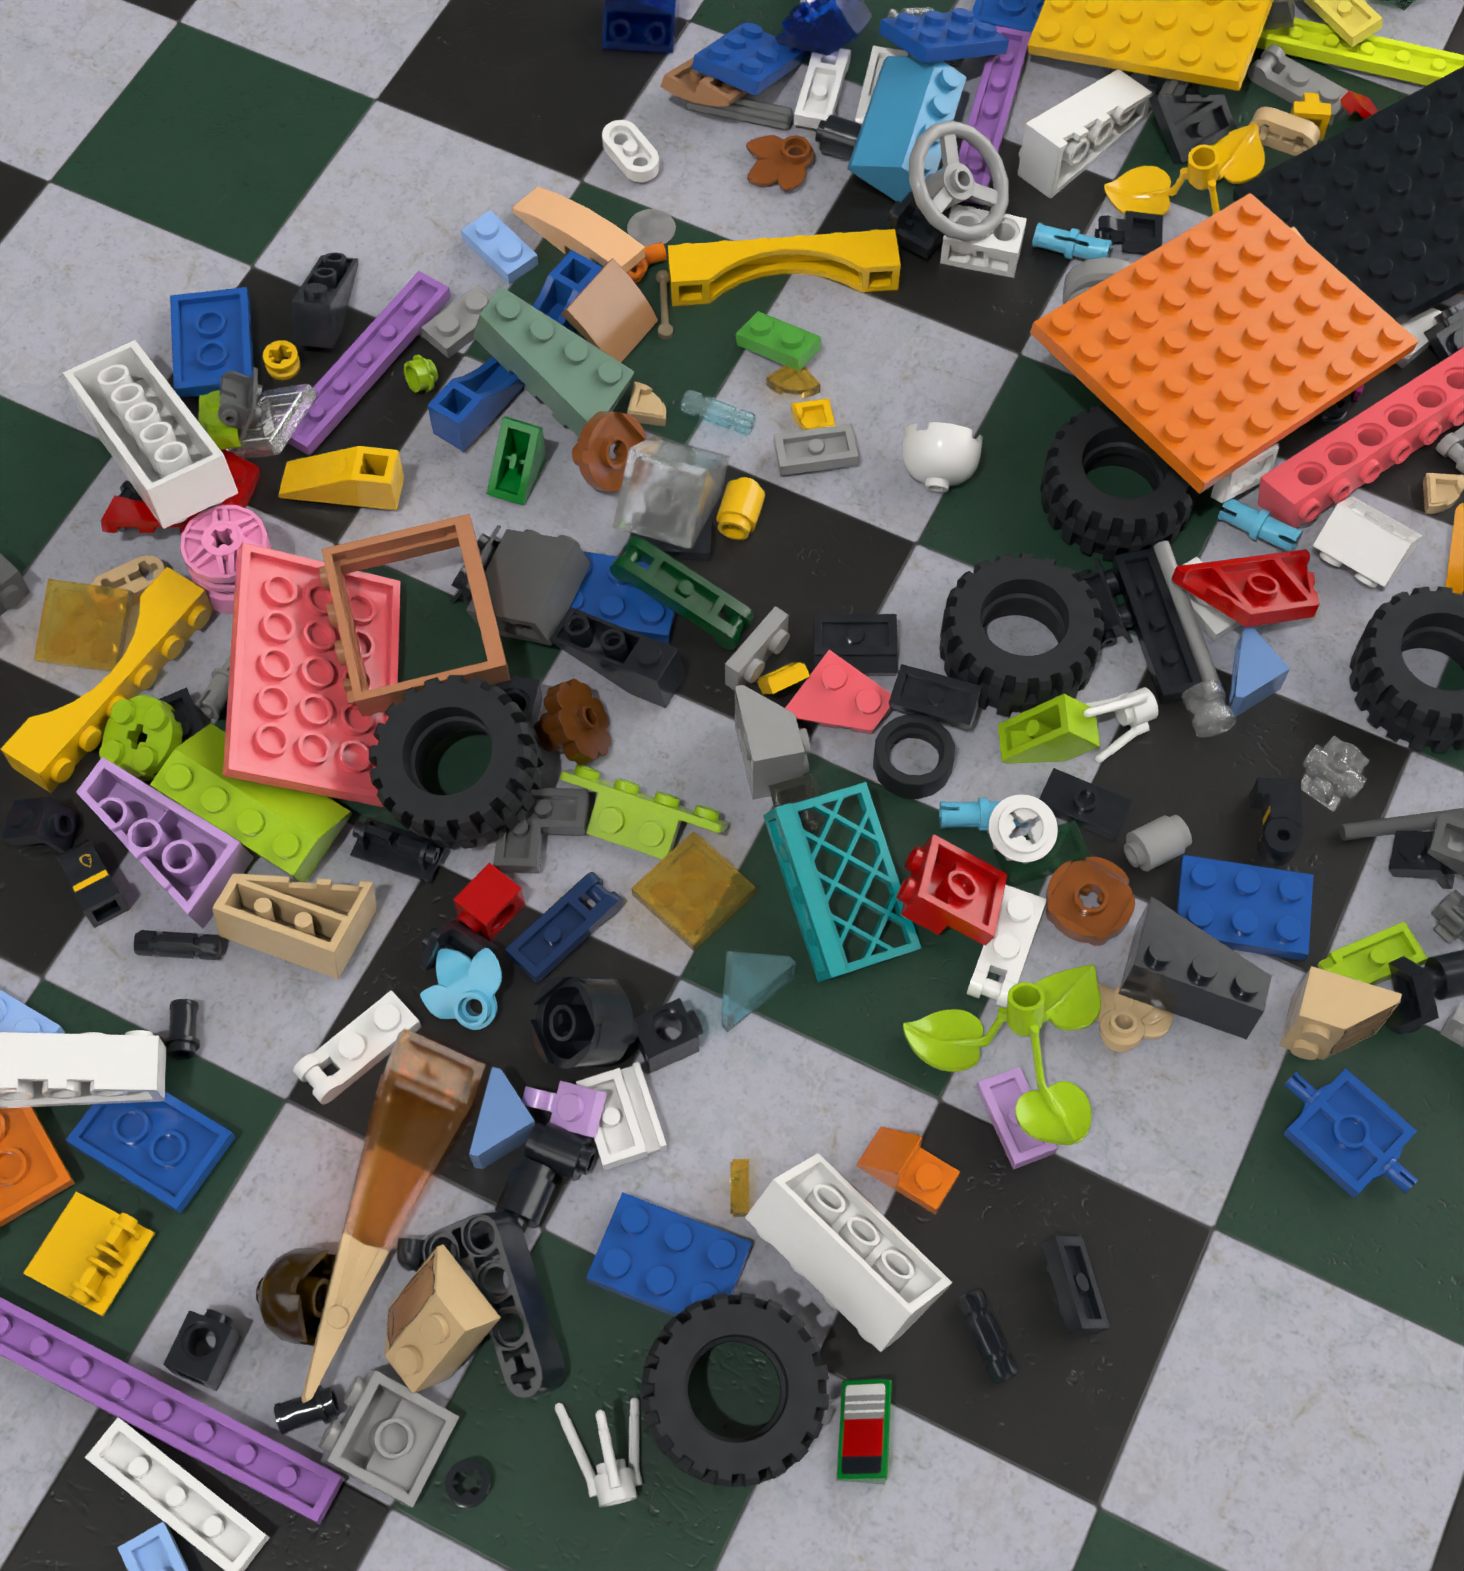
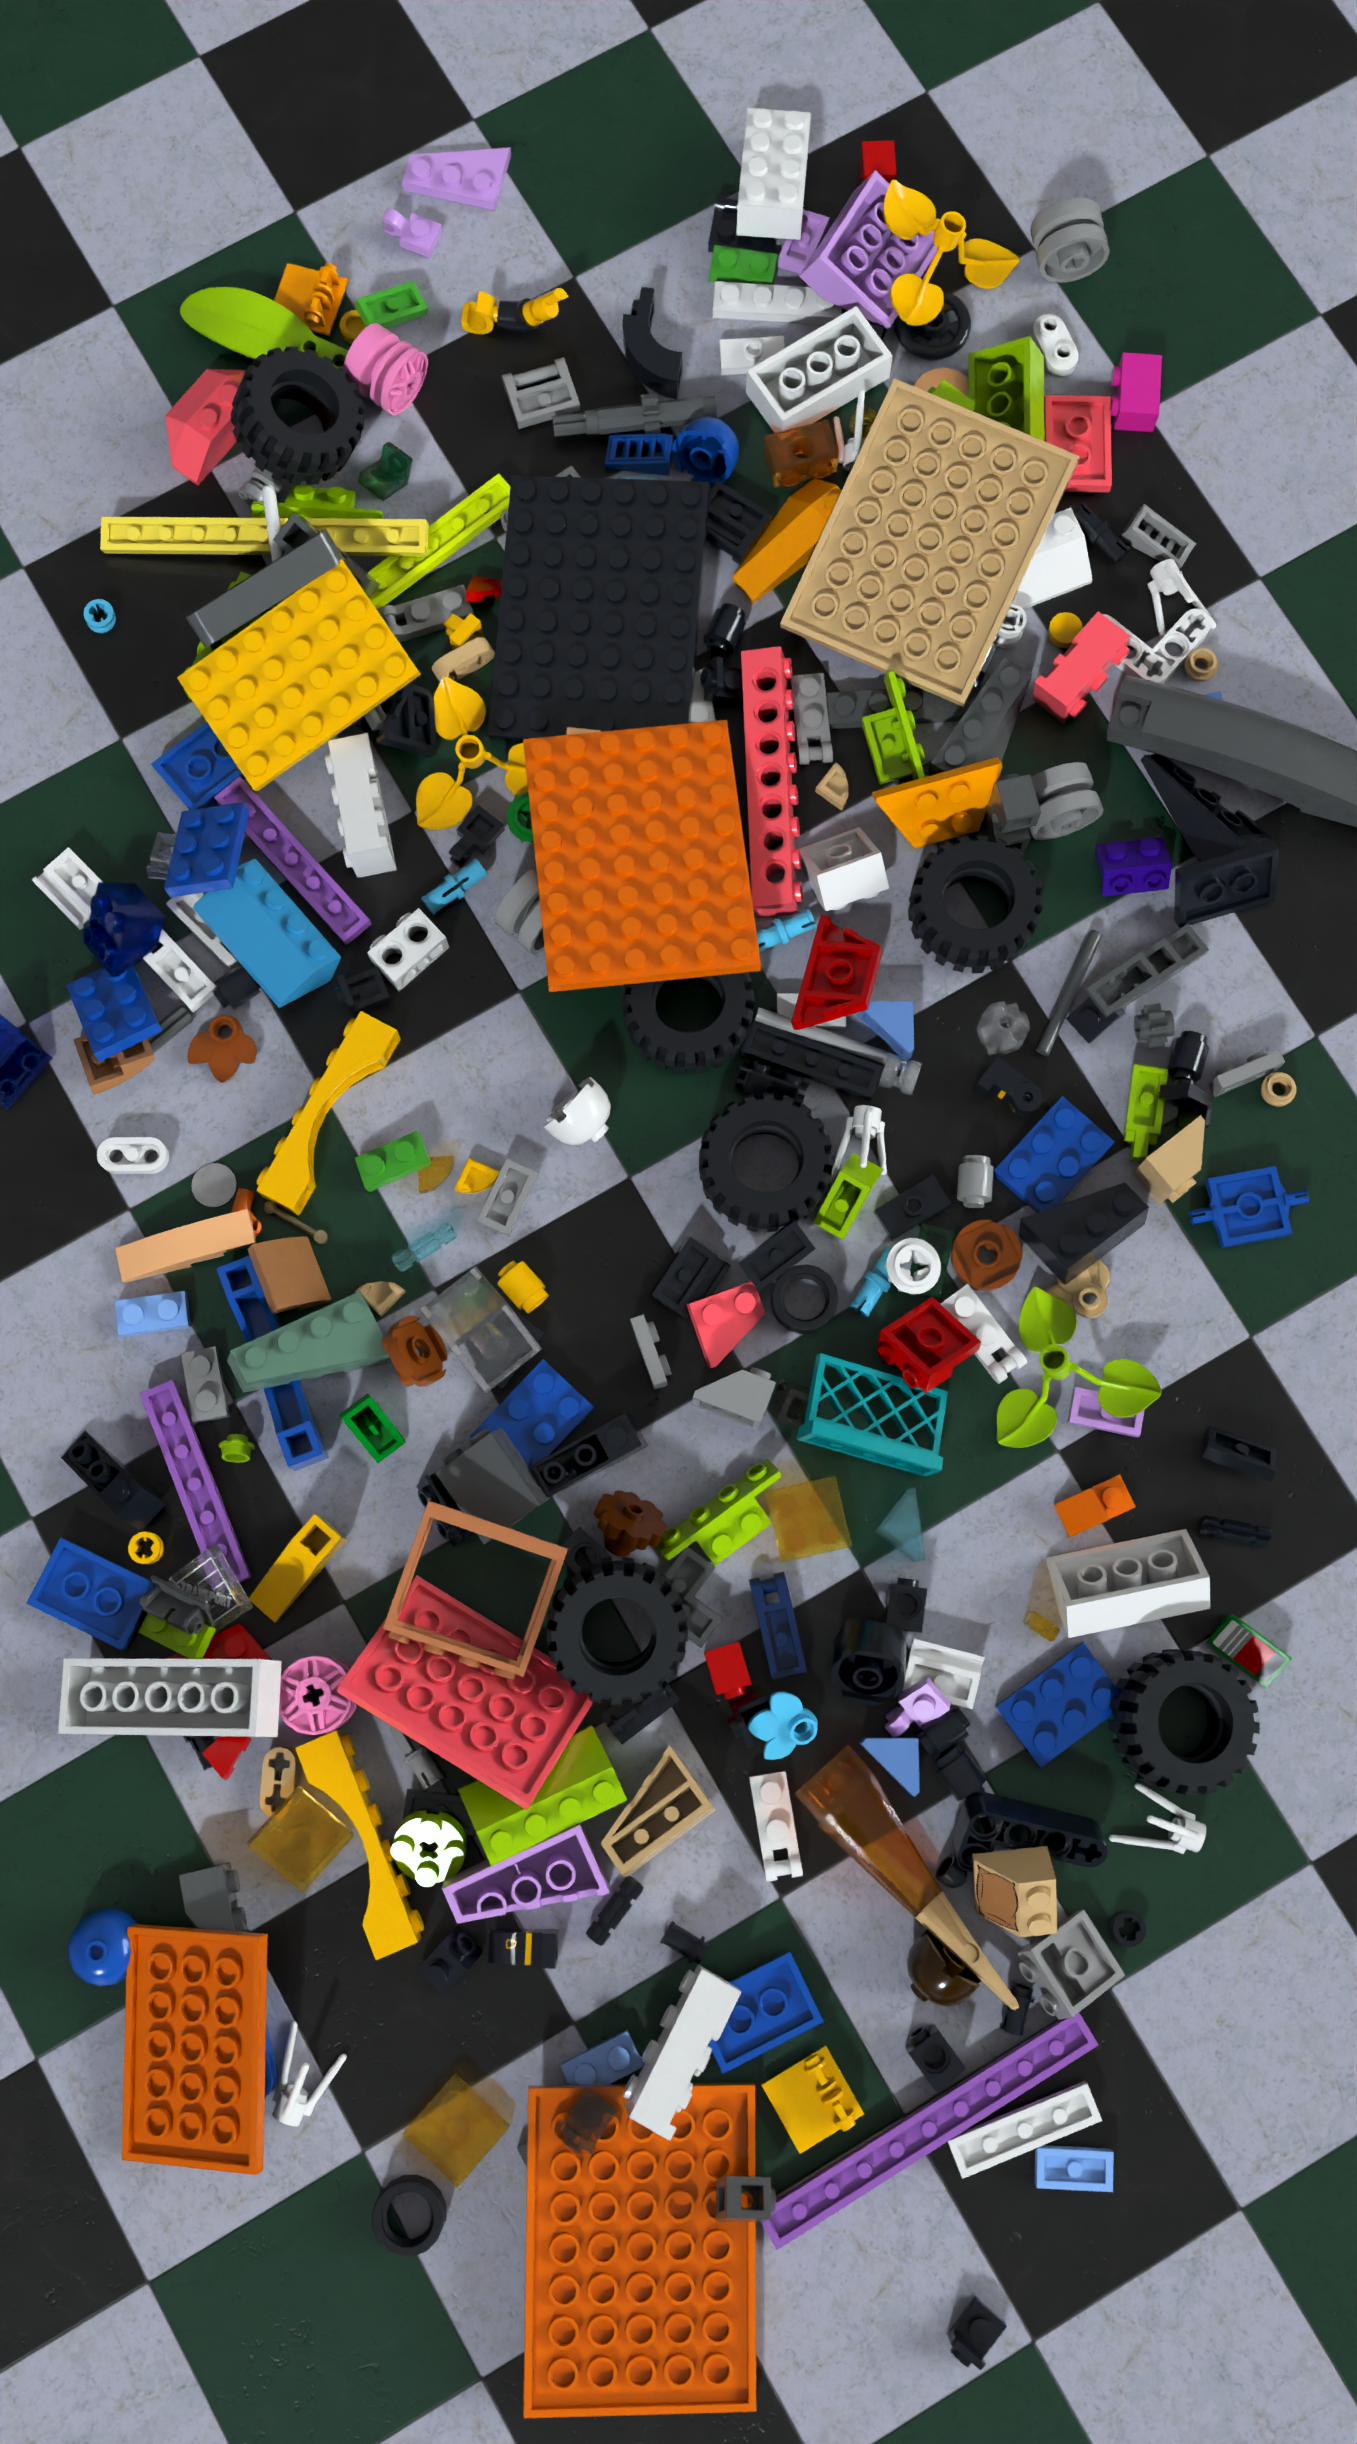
camera: 55 degrees left, 15 degrees up
(683, 591) = (570, 1376): dark green plate -> none
(783, 678) = (685, 1349): yellow tile -> none
(955, 181) = (362, 943): light grey piece -> none

